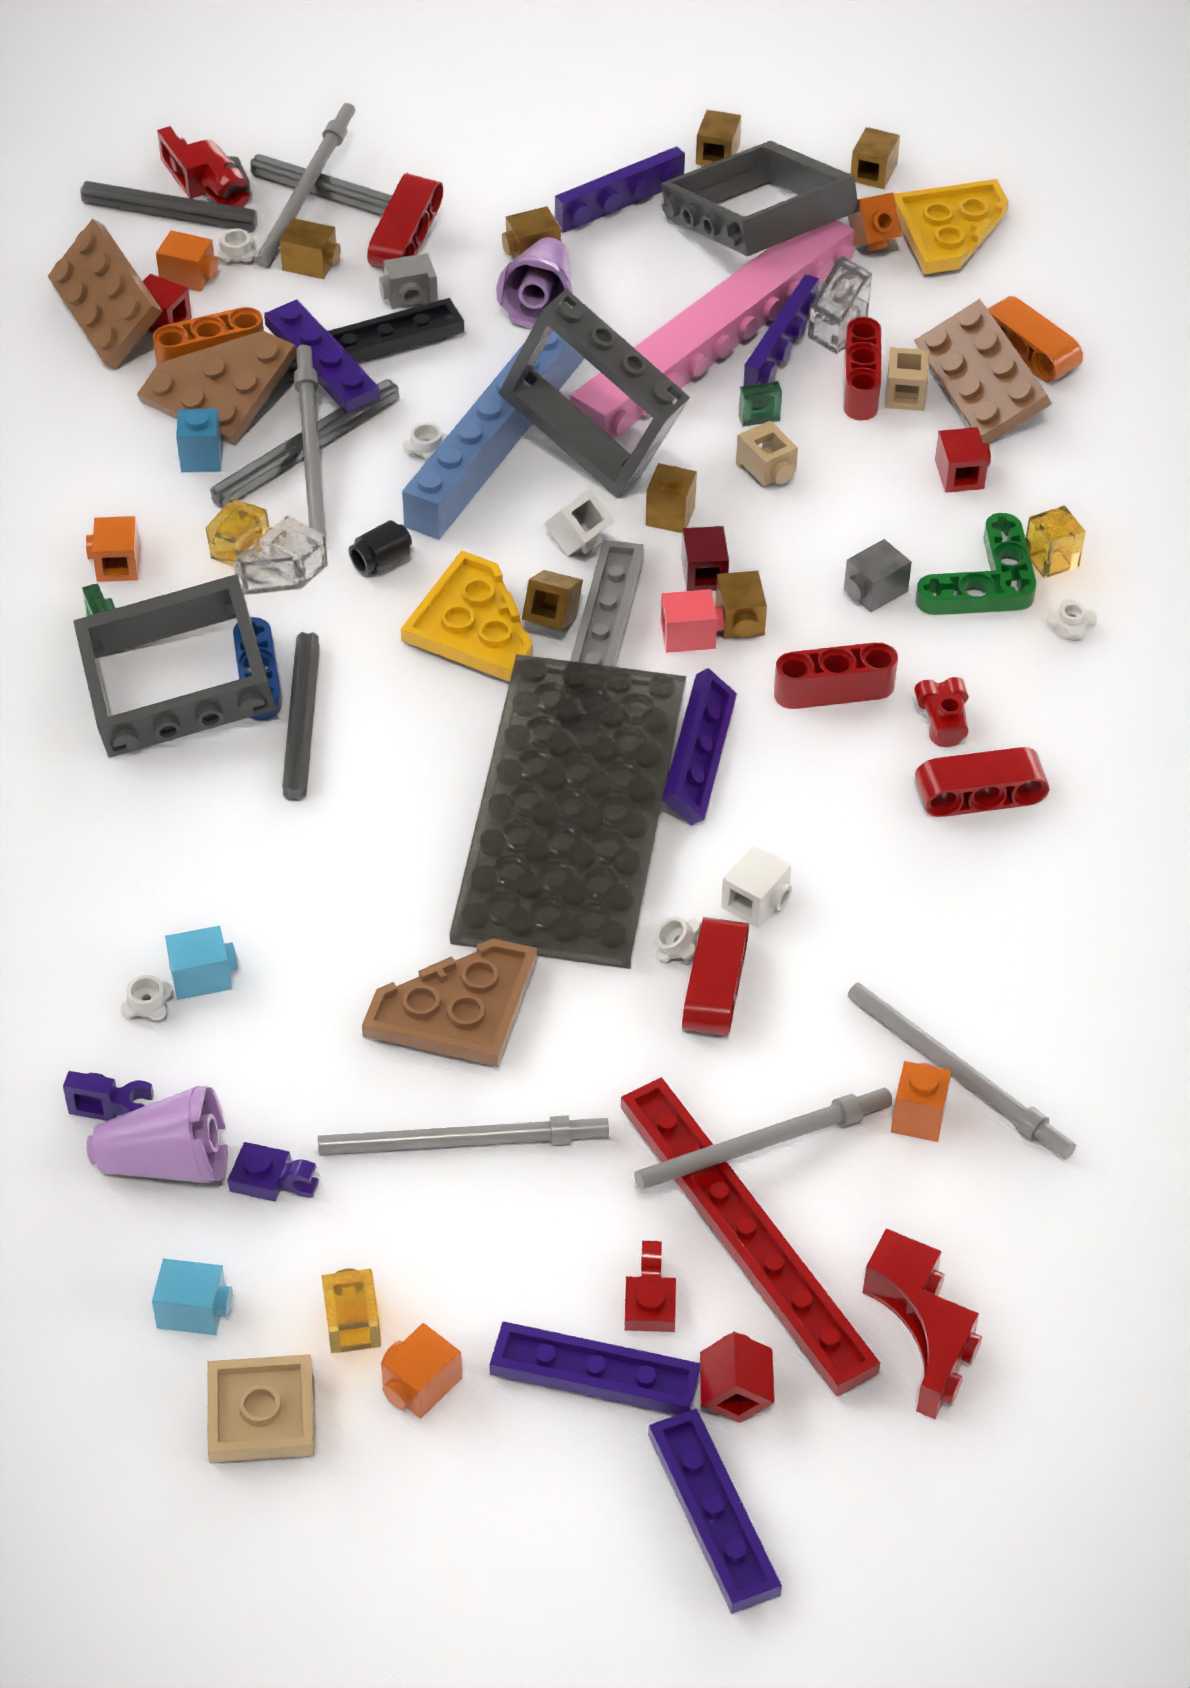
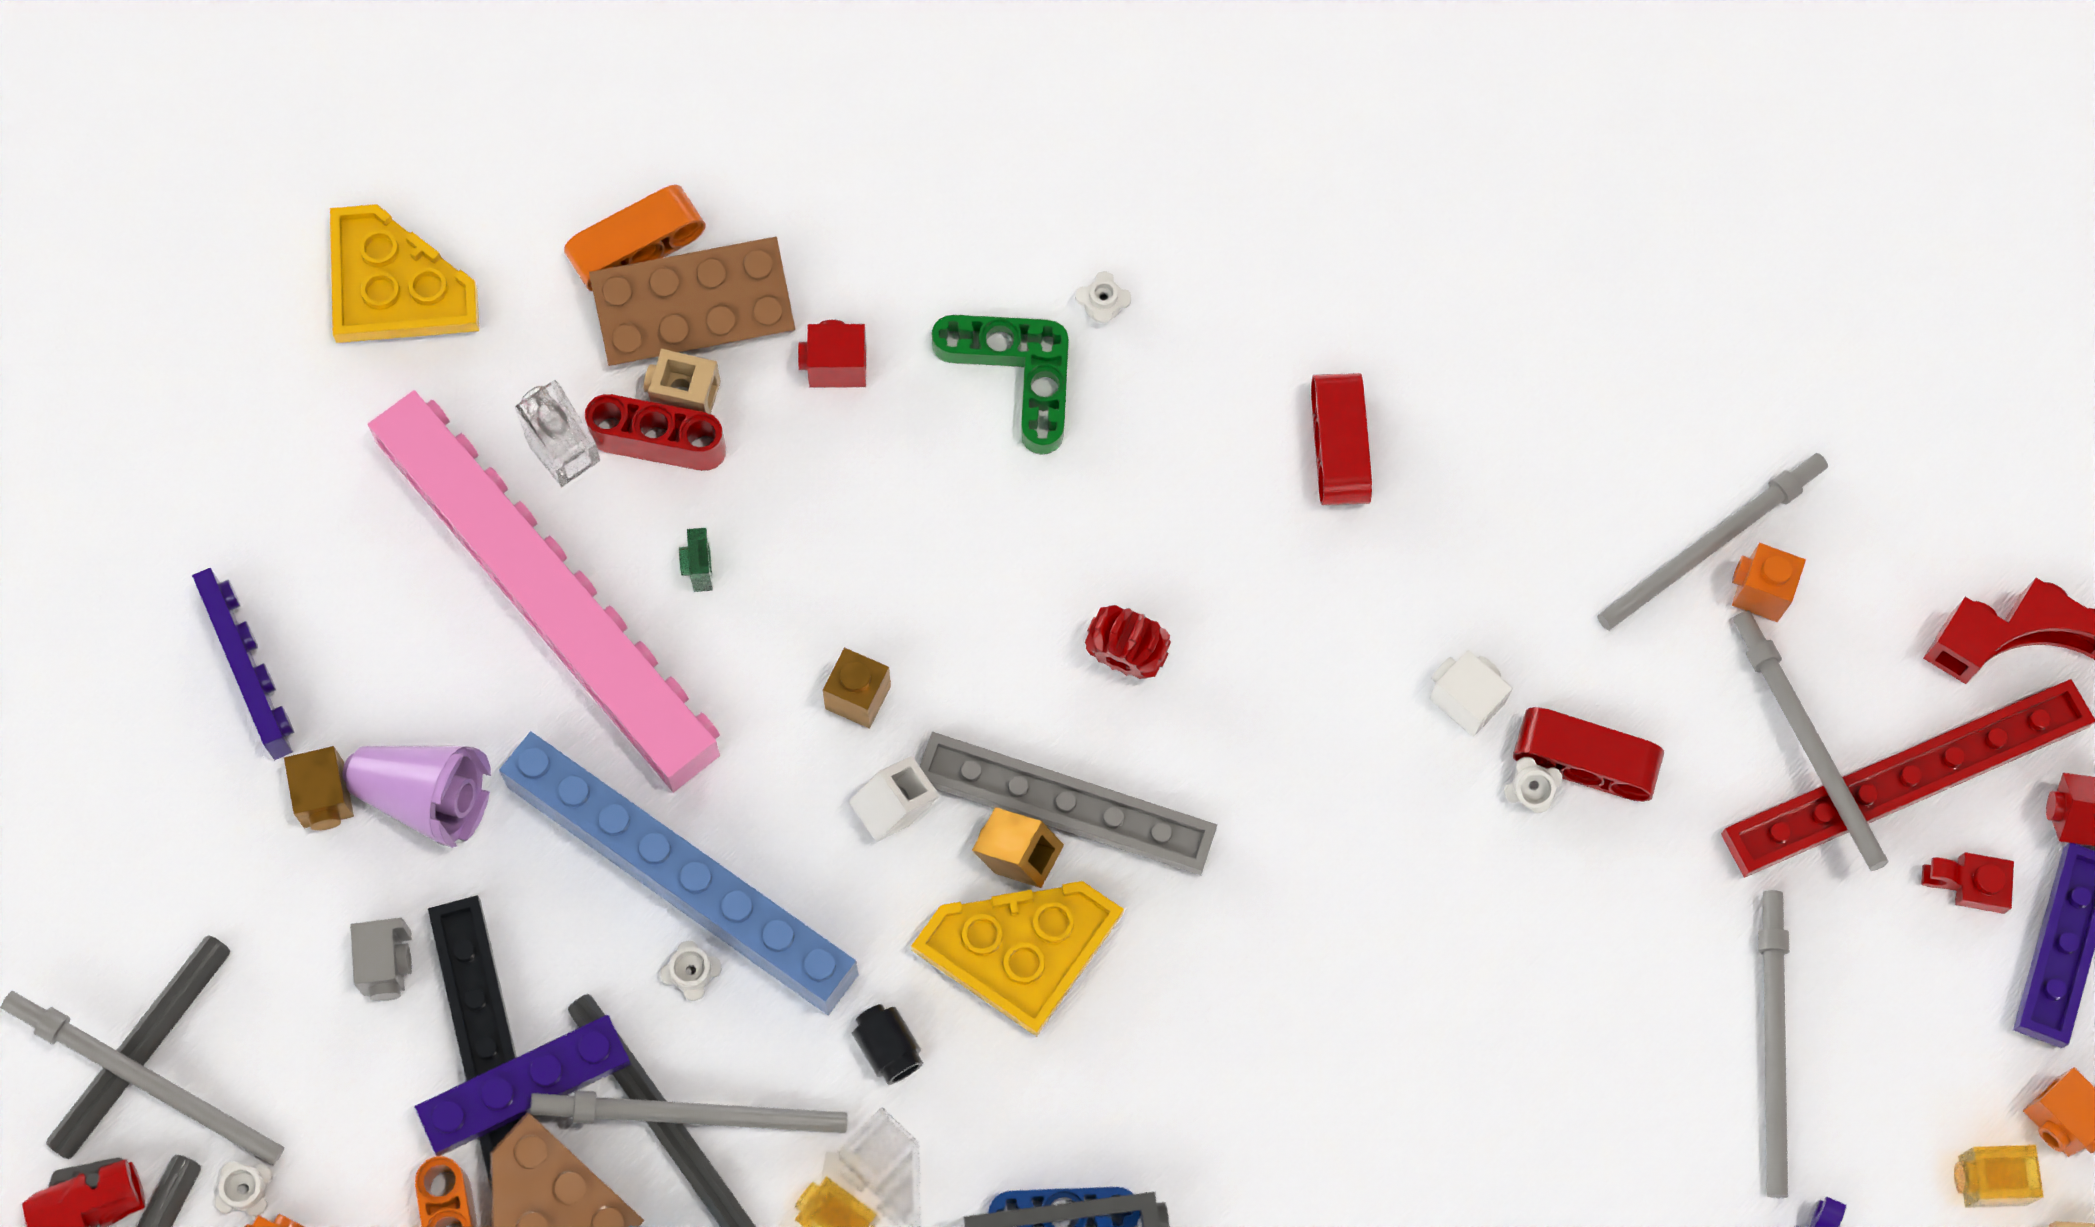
camera: 85 degrees left, 20 degrees up
(300, 716) = (1148, 1166): dark grey axle -> none
(309, 248) = (280, 1084): pearl gold brick -> none
(405, 219) = (264, 948): red beam -> none
(456, 1005) = (1605, 1027): medium nougat plate -> none
(566, 422) = (742, 750): dark grey window -> none
(570, 811) = (1338, 871): clear smoke plate -> none
(690, 620) = (1062, 699): coral brick -> none
(699, 747) = (1258, 718): dark purple plate -> none
(703, 556) = (959, 666): dark red brick -> none
(717, 137) = (164, 523): pearl gold brick -> none
(742, 604) = (1045, 638): pearl gold brick -> none
(746, 646) = (1127, 641): none -> red gear
(772, 461) = (785, 555): tan brick -> none
(779, 338) = (593, 522): dark purple plate -> none
(822, 197) = (294, 430): dark grey window -> none
(835, 675) = (1169, 535): red beam -> none
(875, 157) = (248, 340): pearl gold brick -> none
(875, 221) = (388, 364): orange brick -> none
(877, 575) = (1016, 484): flat silver brick -> none
(945, 709) = (1225, 453): red plate -> none
(1055, 541) = (993, 284): clear yellow brick -> none

